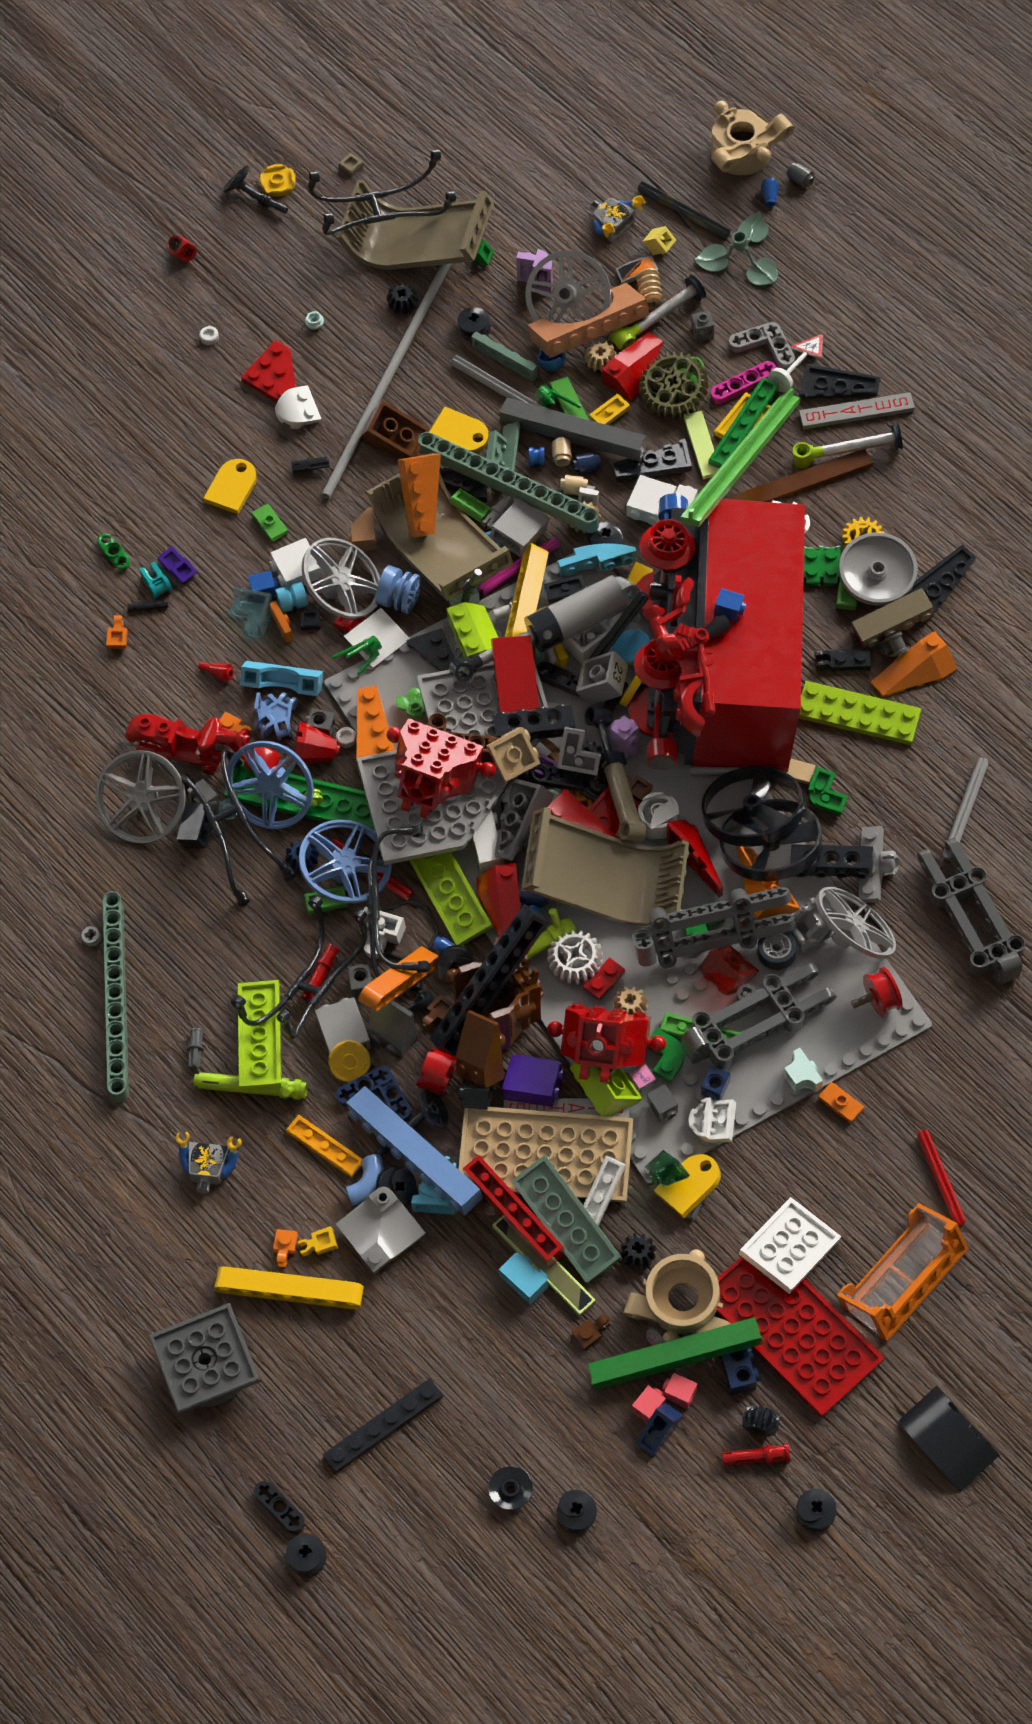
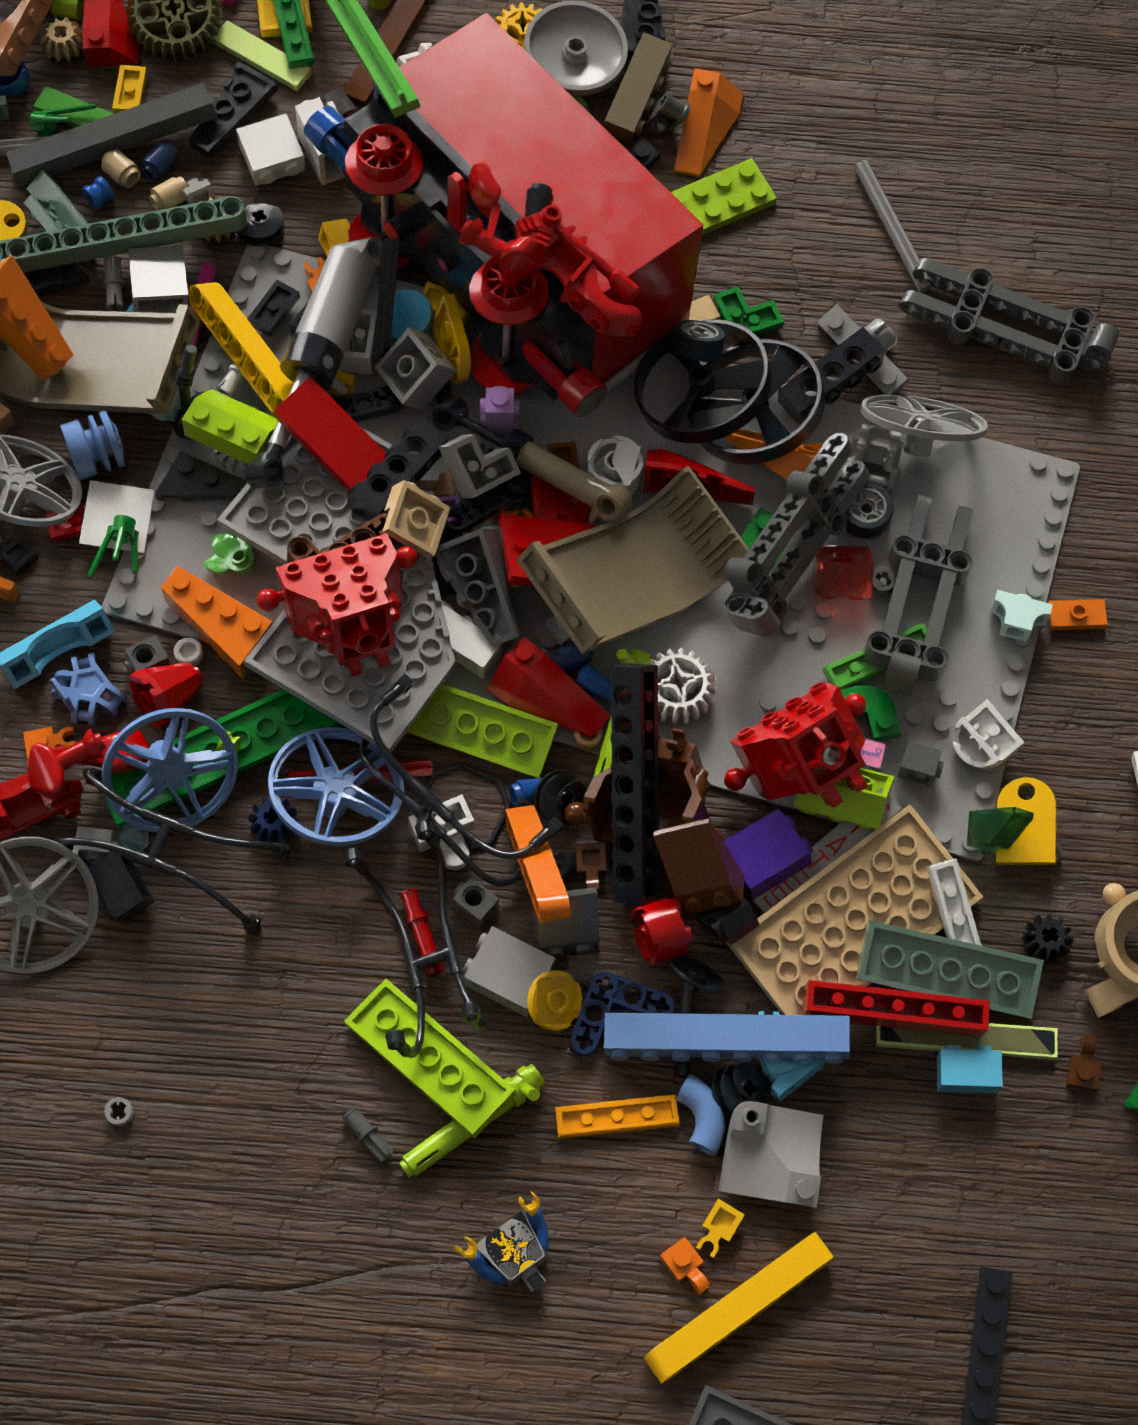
camera: 50 degrees left, 5 degrees up
(117, 1004) = (228, 1165): sand green beam -> none
(327, 904) = (333, 857): bright green plate -> none
(470, 505) = (76, 297): bright green plate -> none
(601, 555) = (276, 245): medium azure slope -> none
(604, 979) = (728, 681): red plate -> none
(638, 1001) = (774, 679): tan gear -> none
(716, 1076) = (953, 688): dark blue brick -> none
(730, 605) = (525, 169): blue brick -> none
(769, 780) = (698, 340): none -> black wheel
(880, 992) = (1016, 468): red wheel -> none

